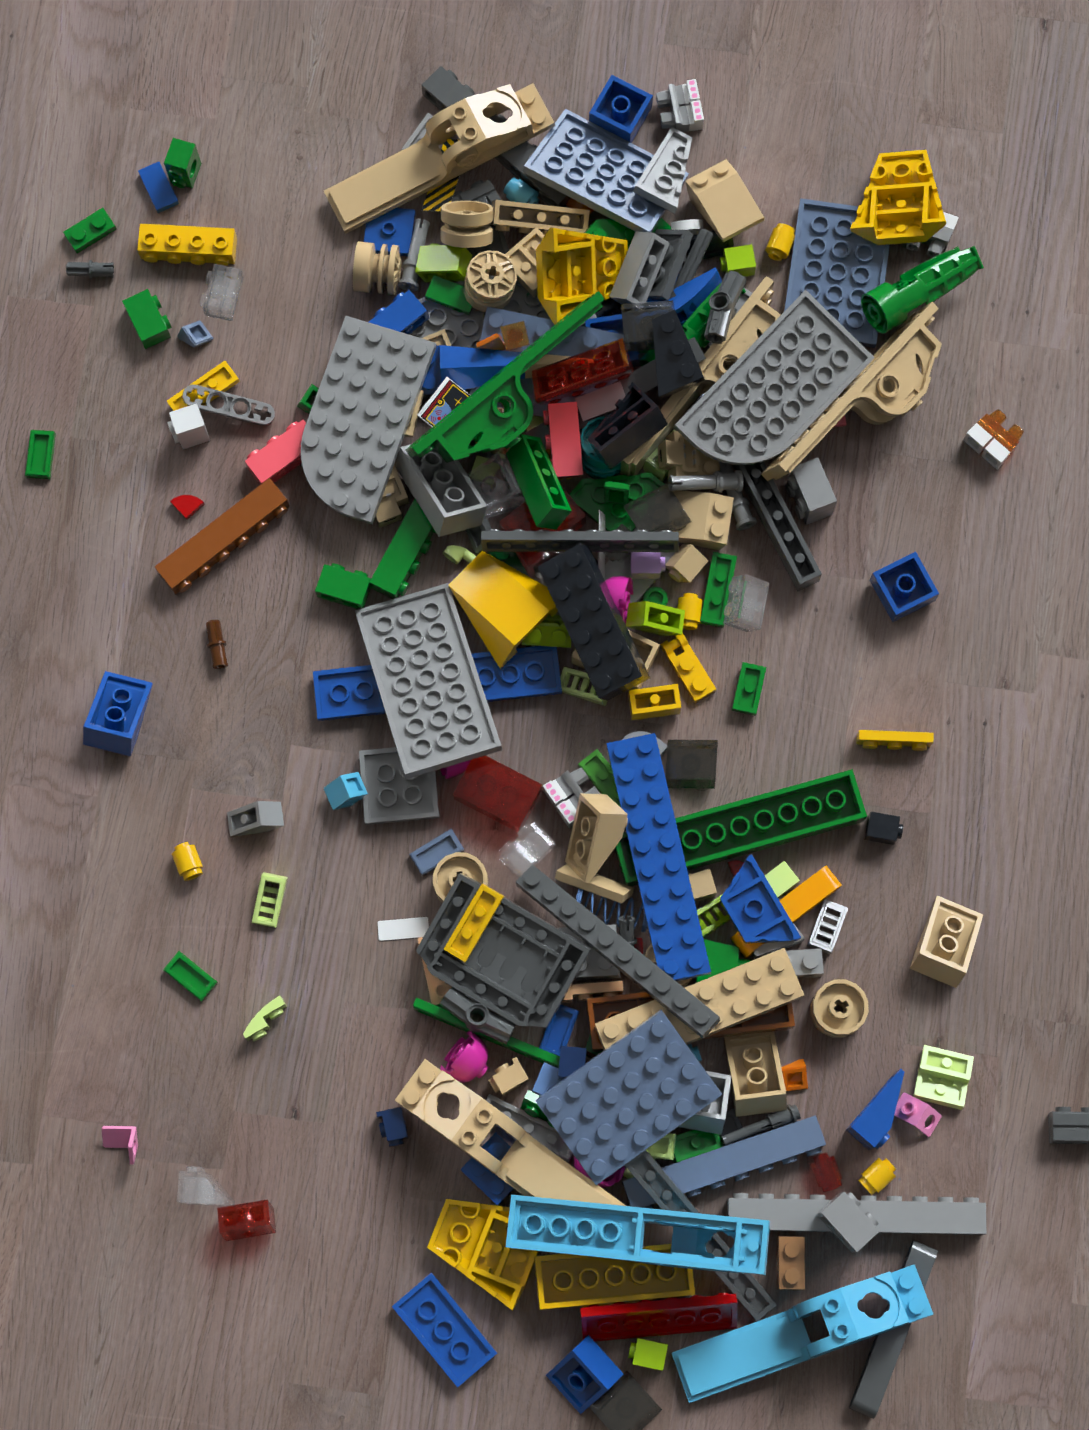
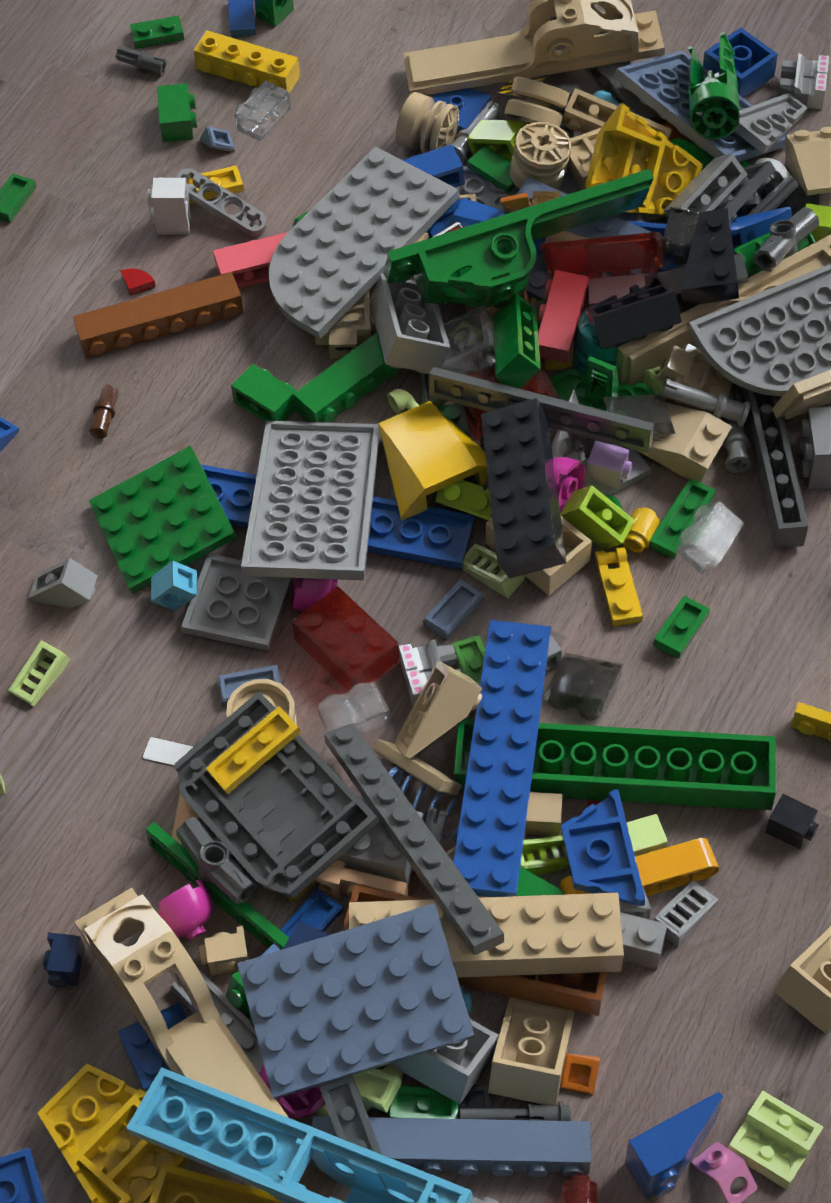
camera: 20 degrees right, 20 degrees down
(309, 732) = (162, 518): none -> green plate
(568, 731) = (453, 609): none -> sand blue tile
(621, 187) = (715, 99): none -> green piece
(654, 702) = (564, 602): yellow brick -> none
(685, 563) = (654, 479): tan brick -> none
(839, 1023) = (666, 1006): tan wheel -> none

